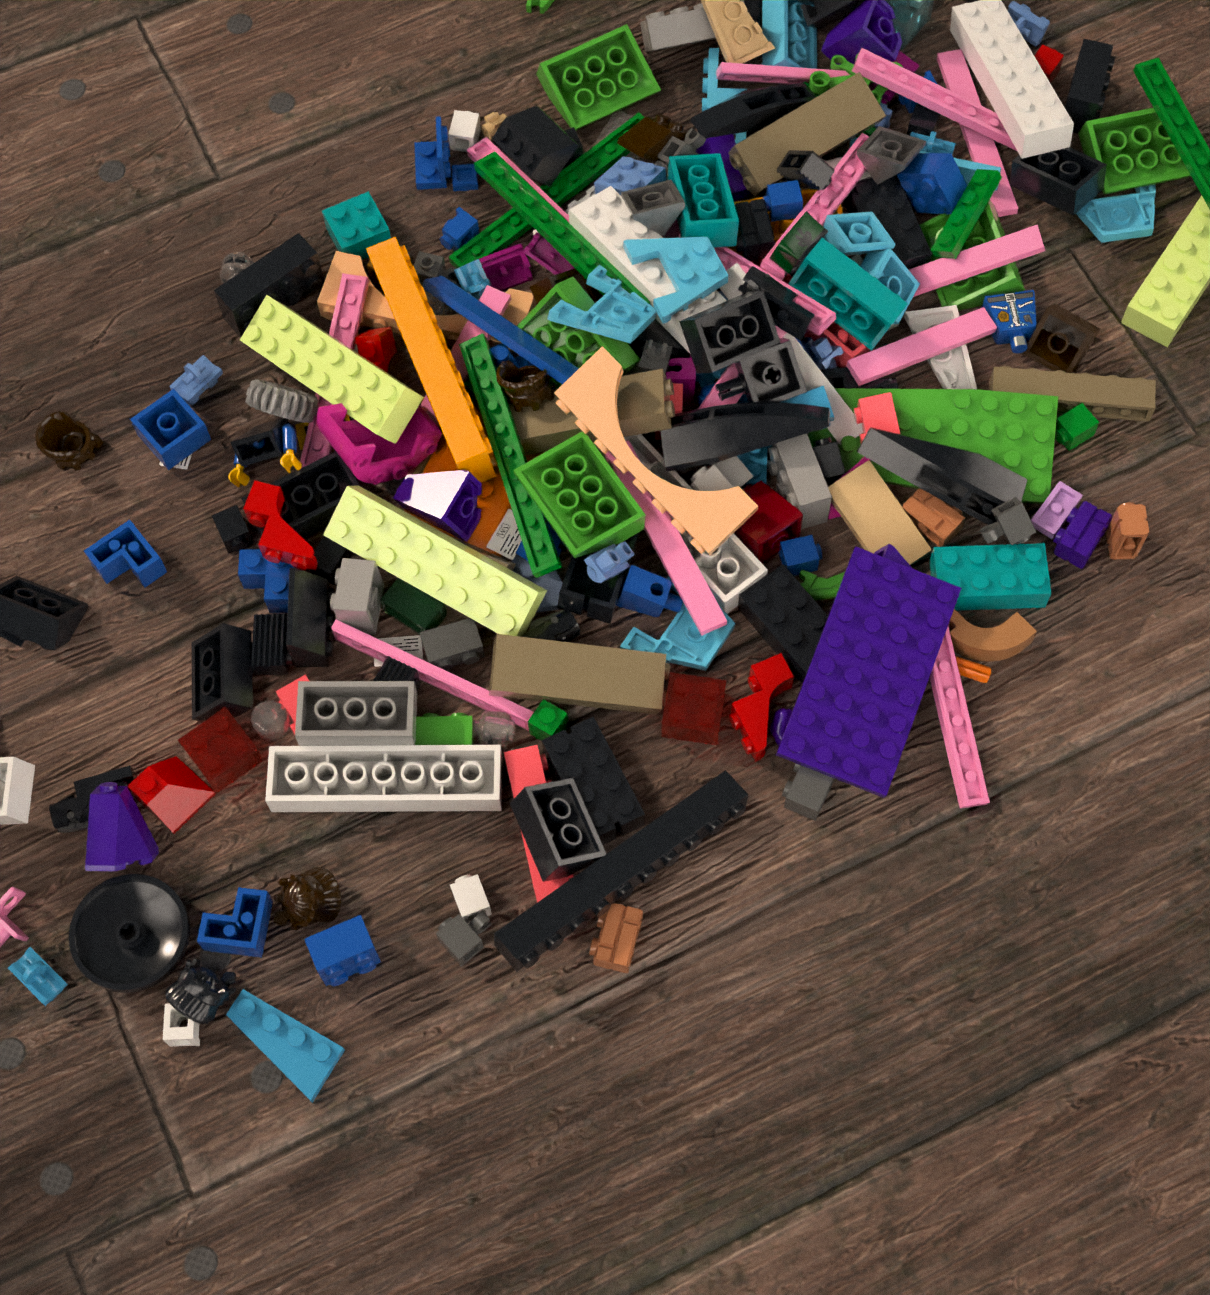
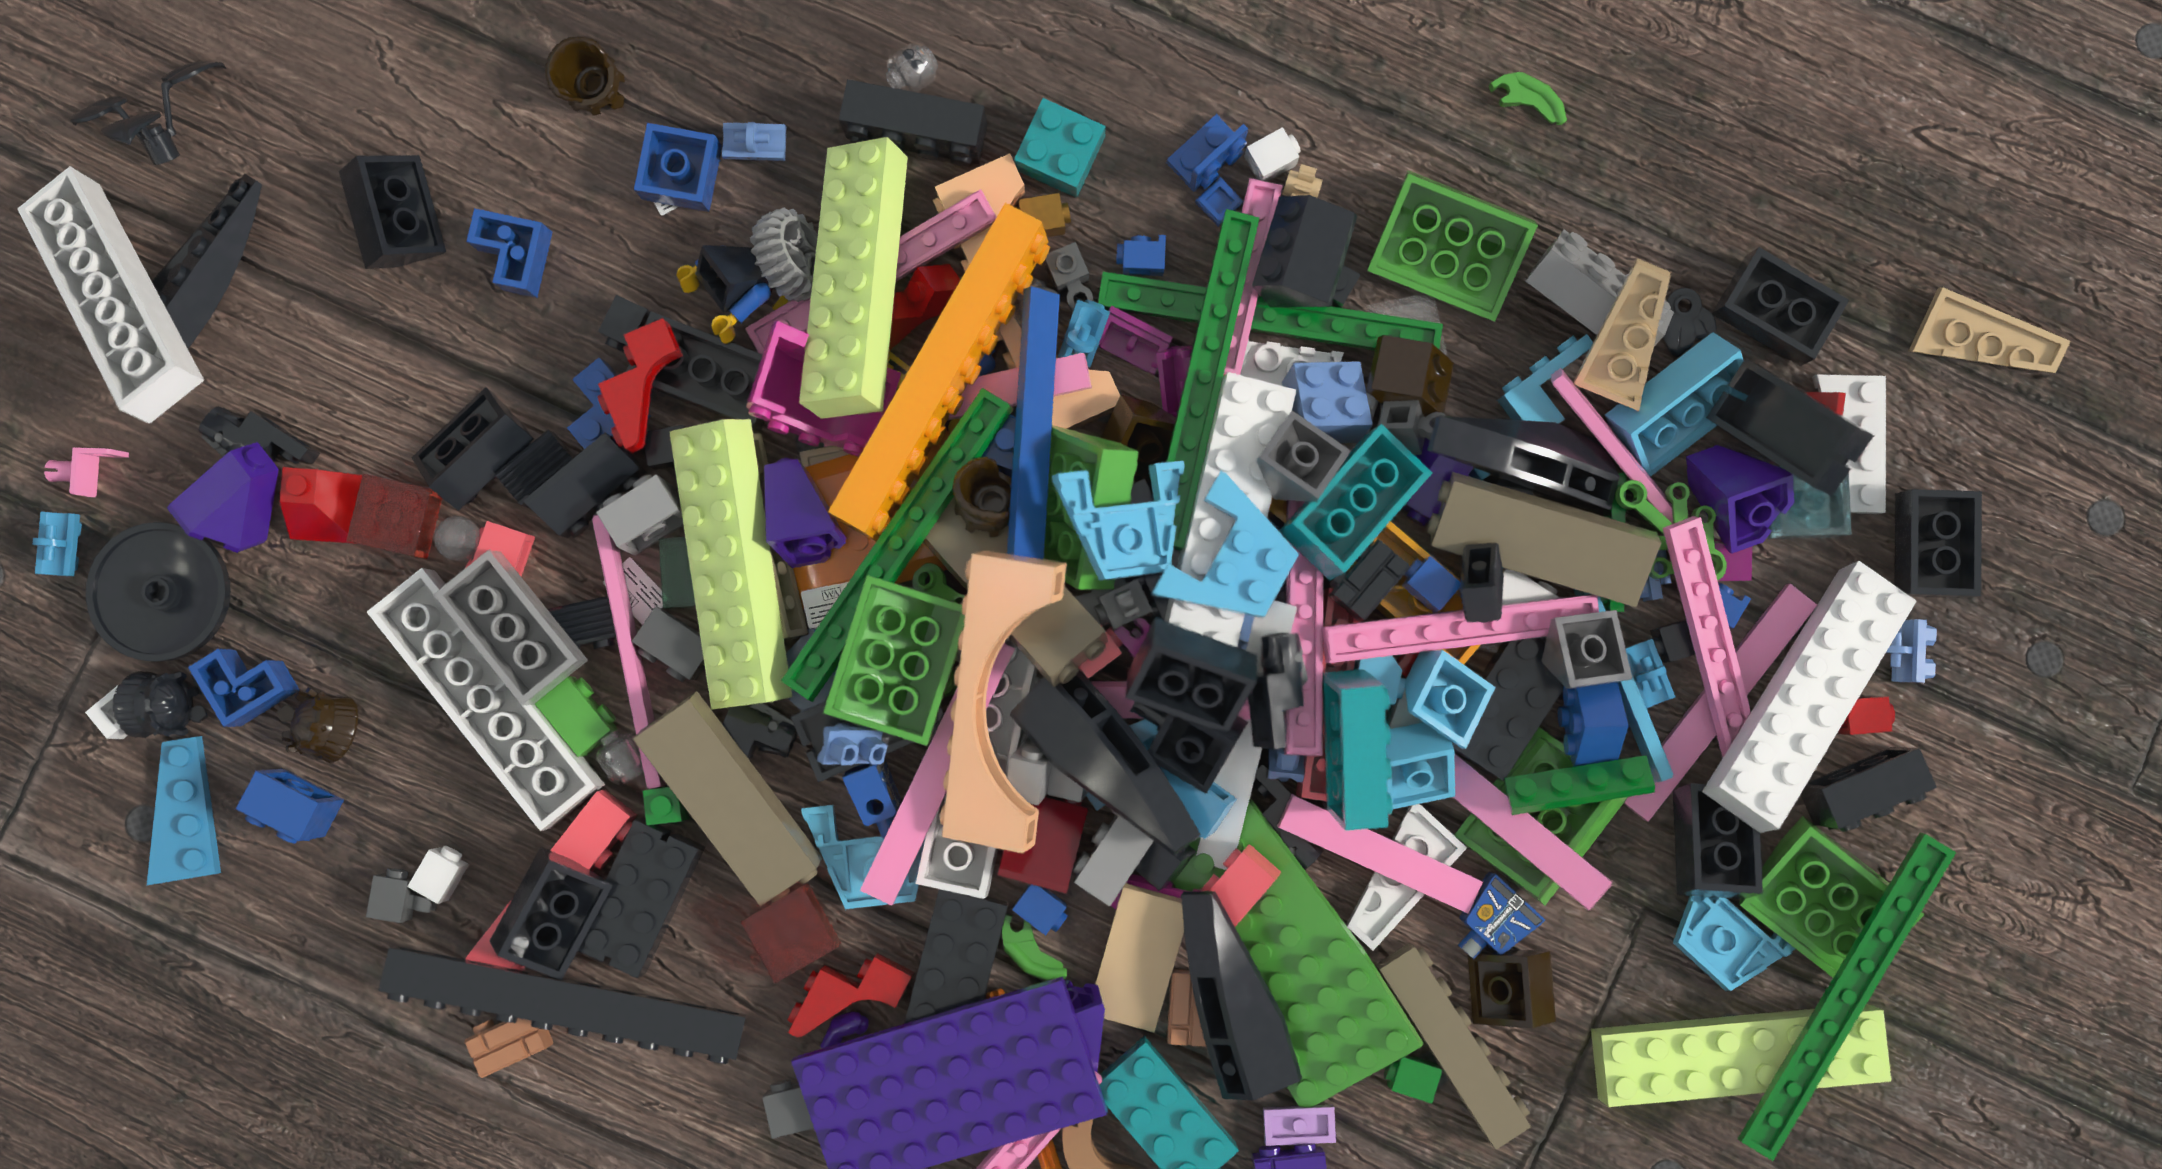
camera: 50 degrees right, 20 degrees up
(798, 243) = (1372, 654): dark green piece -> none
(1011, 522) = (1229, 1105): dark grey brick -> none

